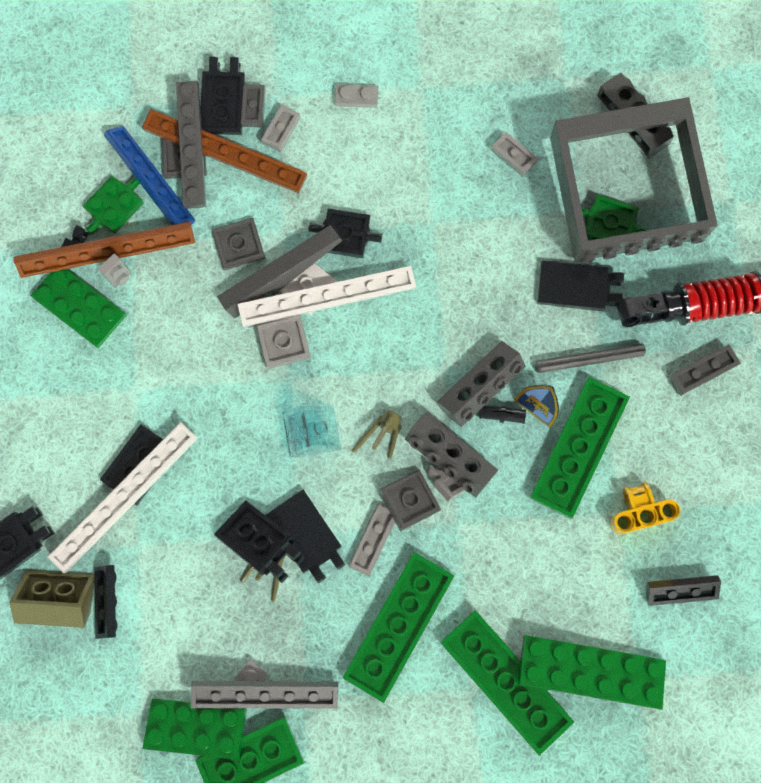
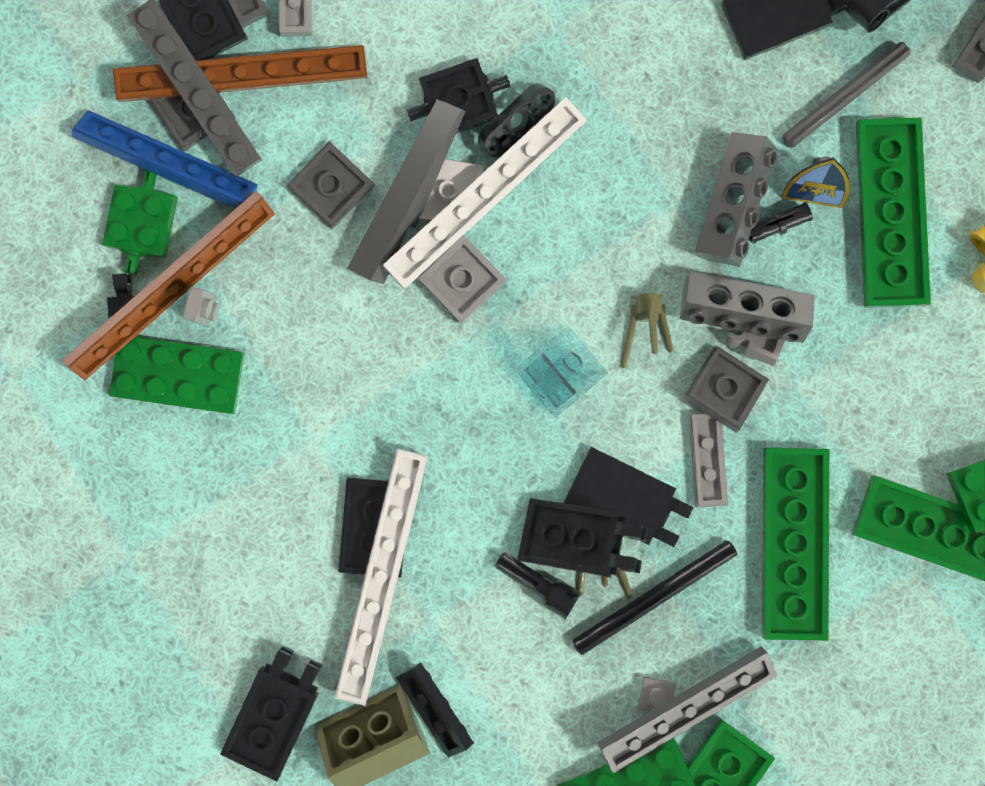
camera: 30 degrees left, 10 degrees up
(224, 572) = (557, 595): none -> black piece
(287, 610) = (654, 597): none -> black axle
(364, 259) = (529, 120): none -> black beam

